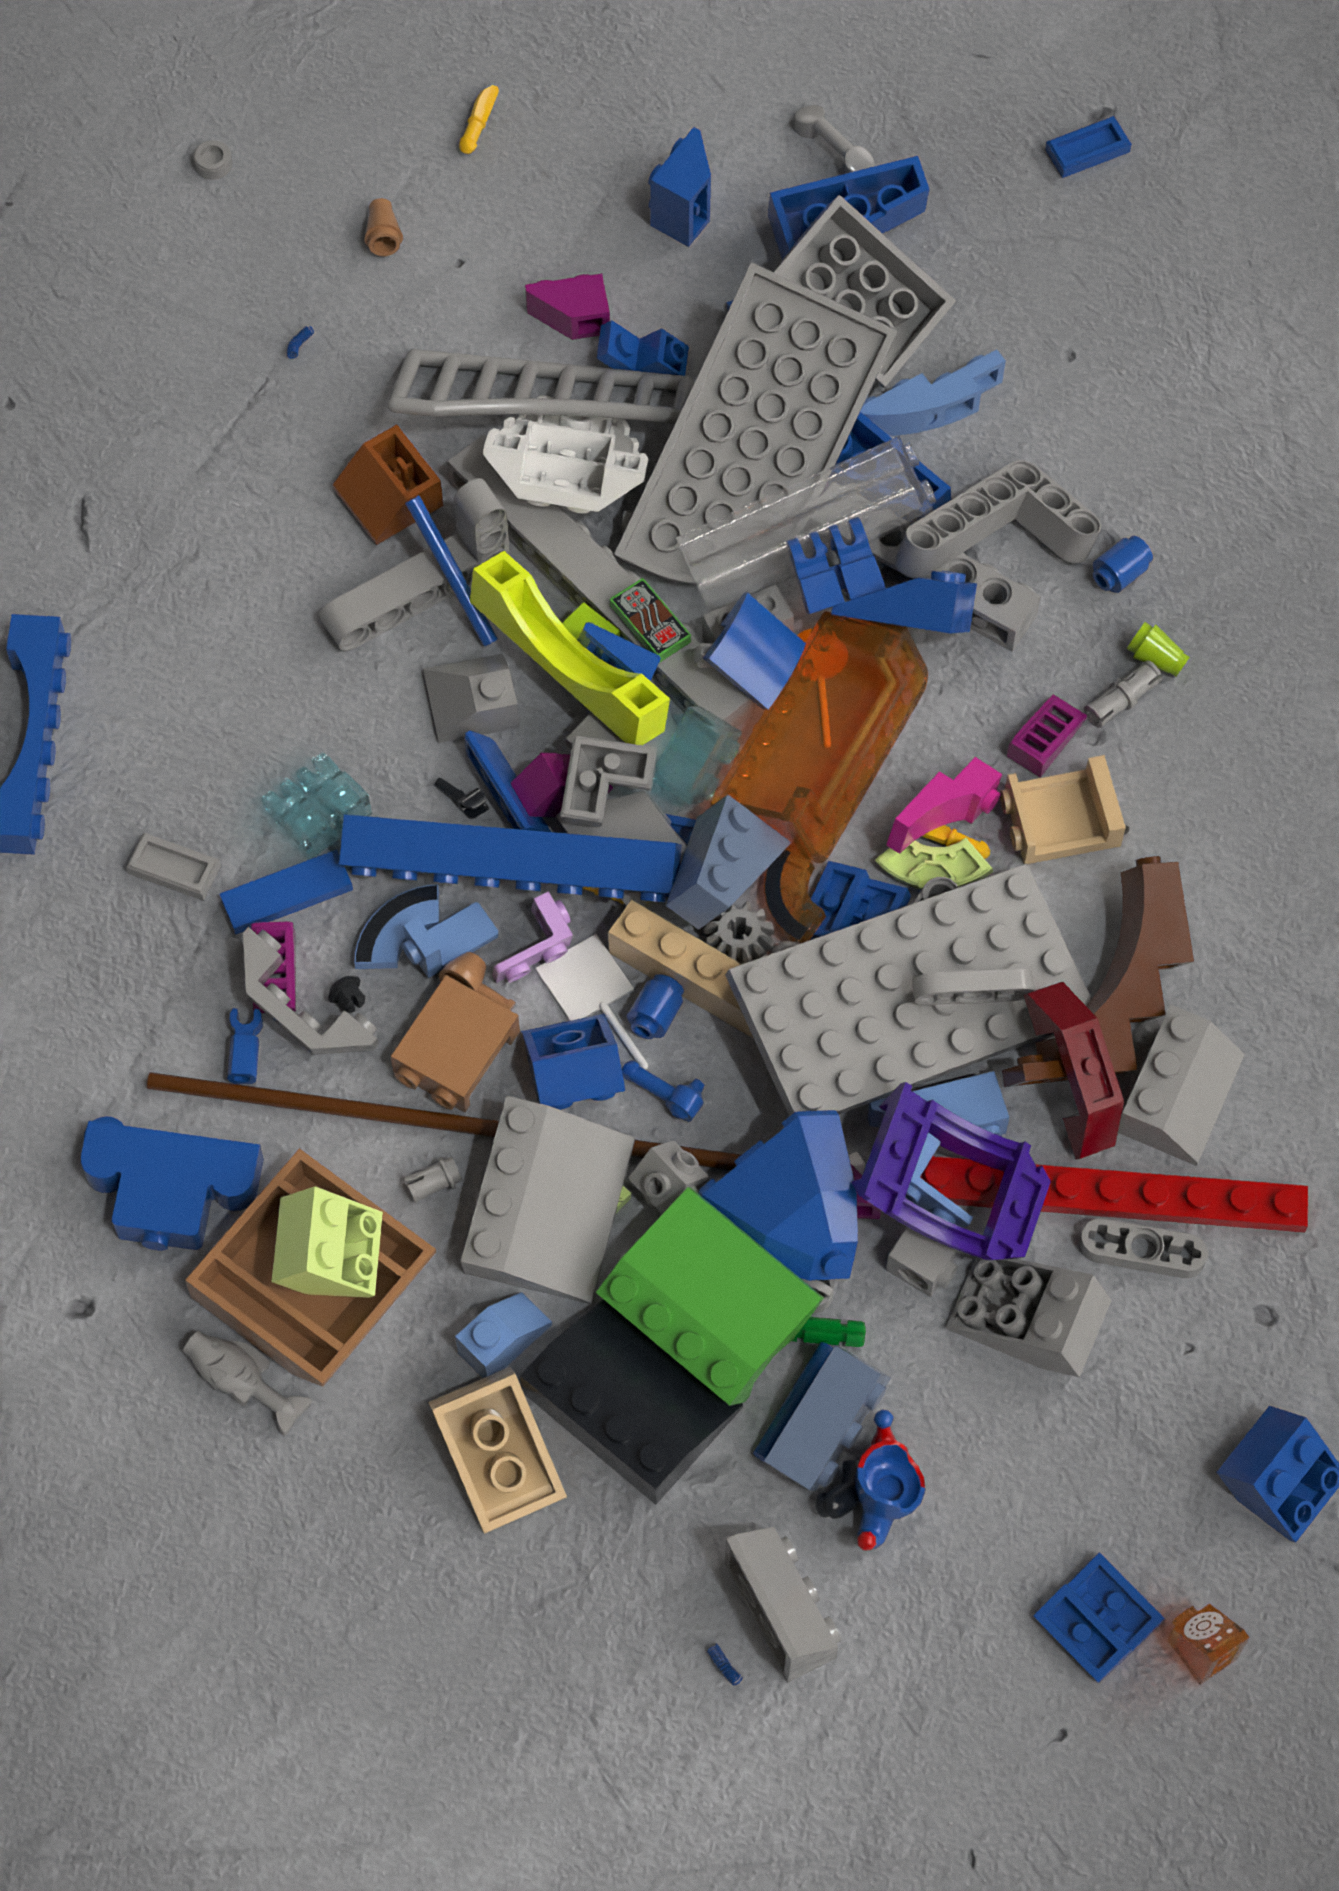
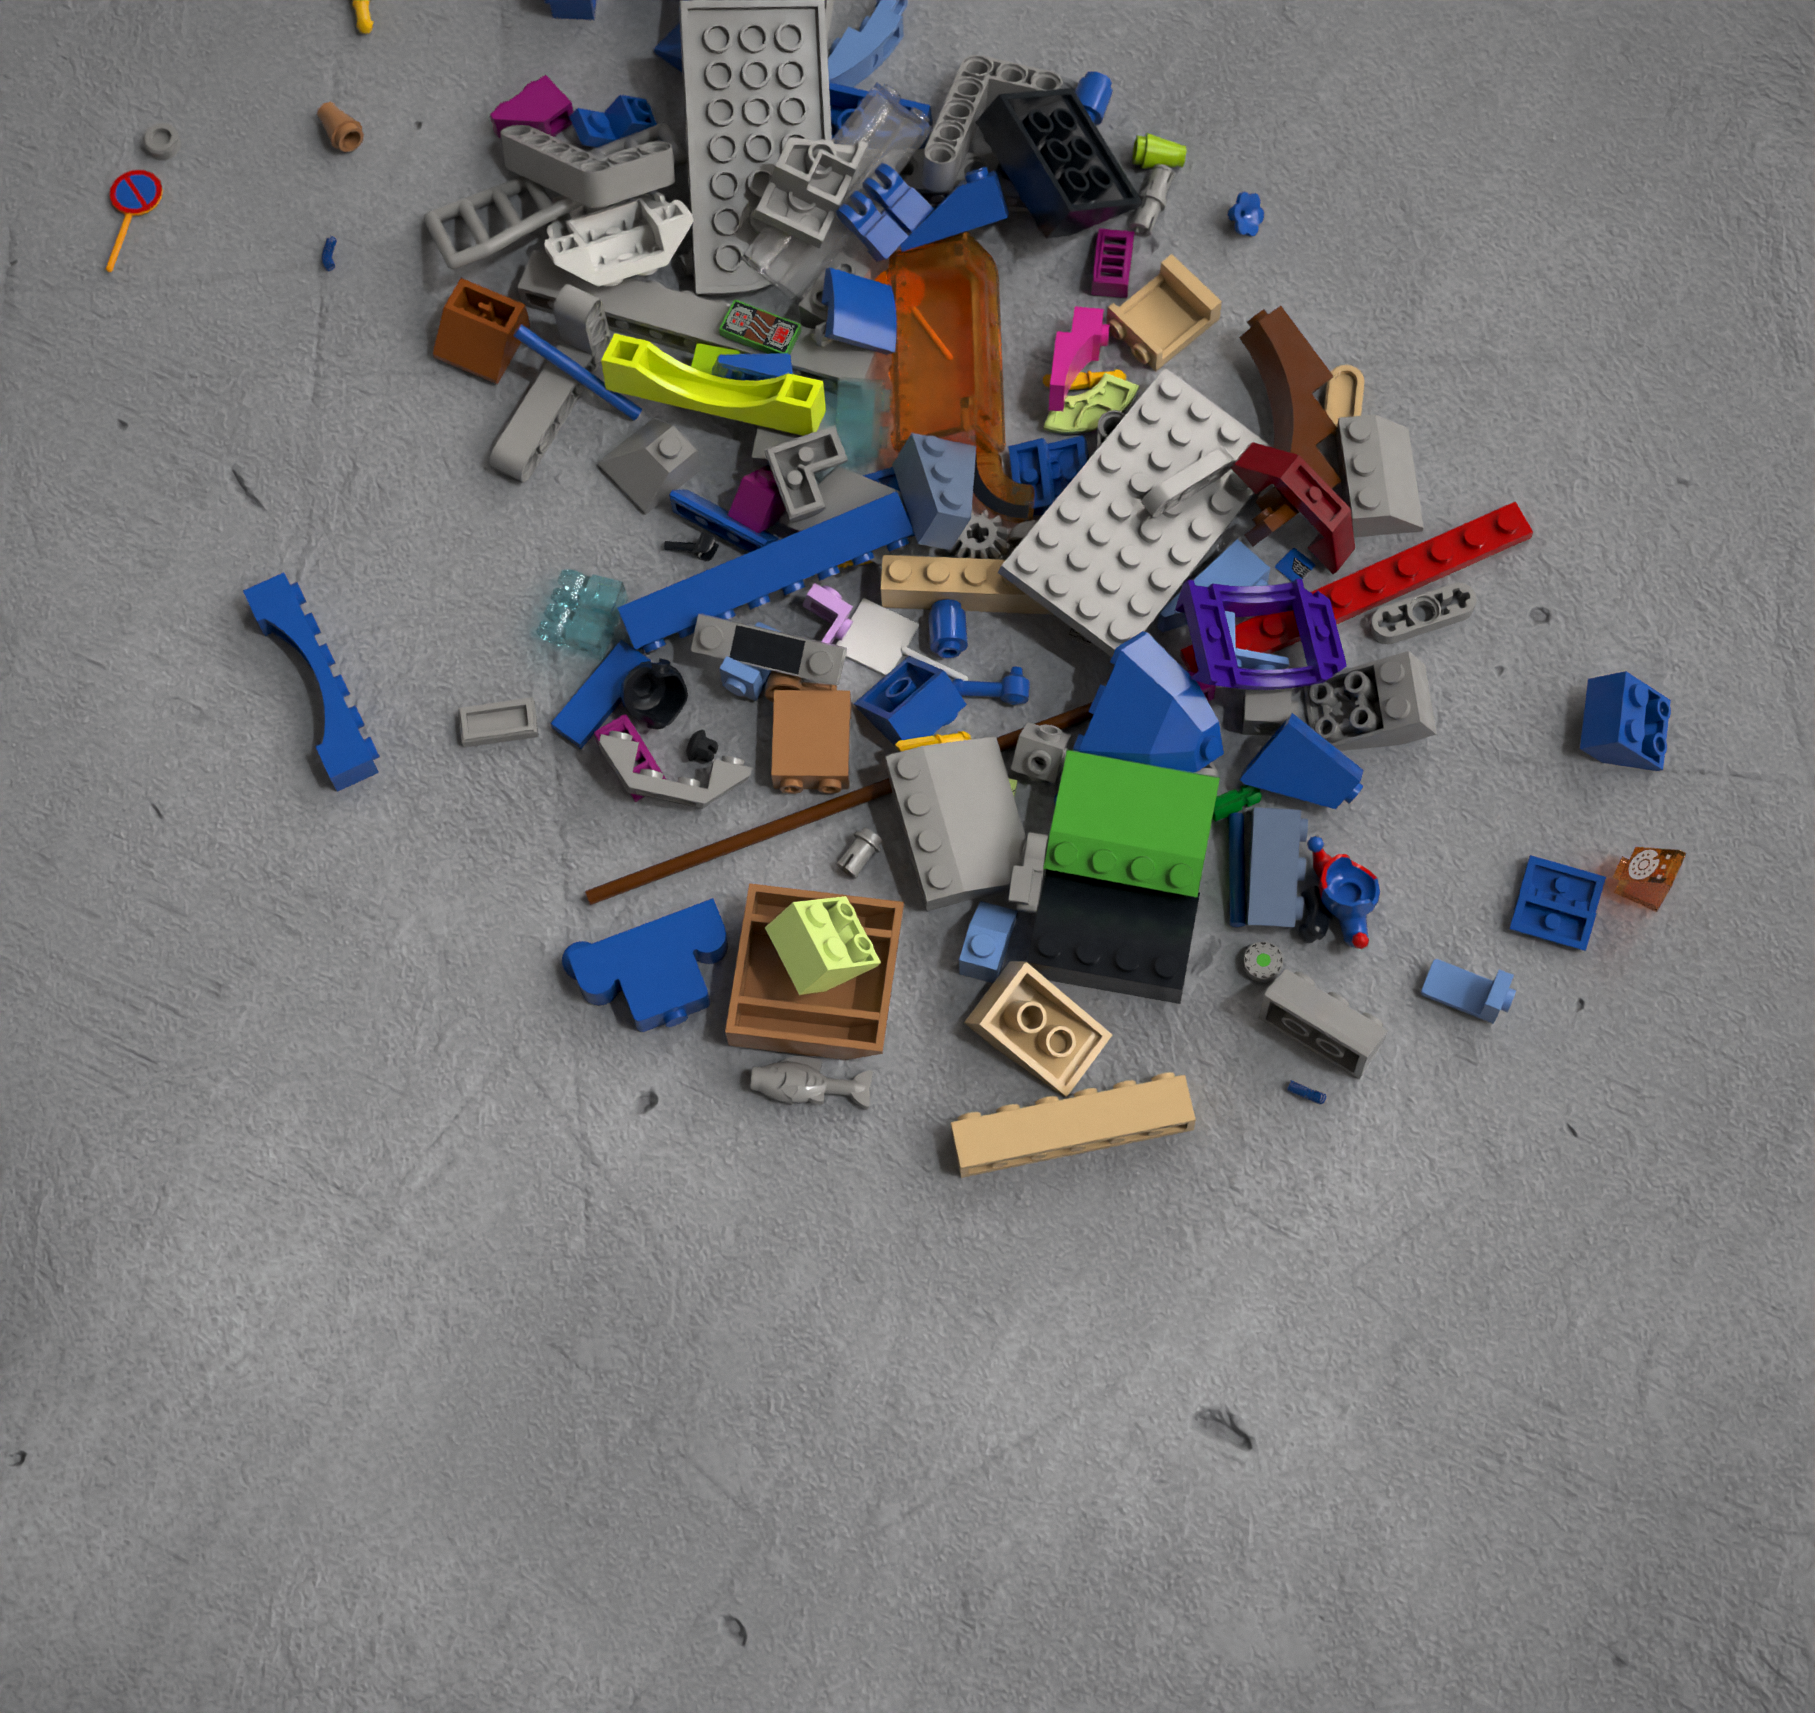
camera: 25 degrees left, 5 degrees up
(154, 196) = (132, 195): none -> piece
(244, 1048) = (647, 833): blue bar -> none
(331, 916) = (654, 693): none -> black cap
(384, 932) = (703, 686): tile -> none
(464, 932) = (769, 649): none -> plate
(469, 1564) = (1073, 1124): none -> tan brick
(569, 1107) = (903, 745): none -> yellow piece
(569, 1299) = (1027, 879): none -> light grey piece
(574, 394) = (583, 175): none -> light grey beam
(762, 1508) = (1263, 962): none -> light grey tile
(773, 504) = (809, 187): none -> light grey slope
(921, 1335) = (1304, 767): none -> blue slope
(950, 1654) = (1468, 990): none -> medium blue bracket
(1044, 605) = (1057, 160): none -> black slope
(1044, 1131) = (1294, 565): none -> blue sticker
(1199, 985) = (1344, 393): none -> tan tile
(1210, 756) = (1246, 213): none -> blue plant

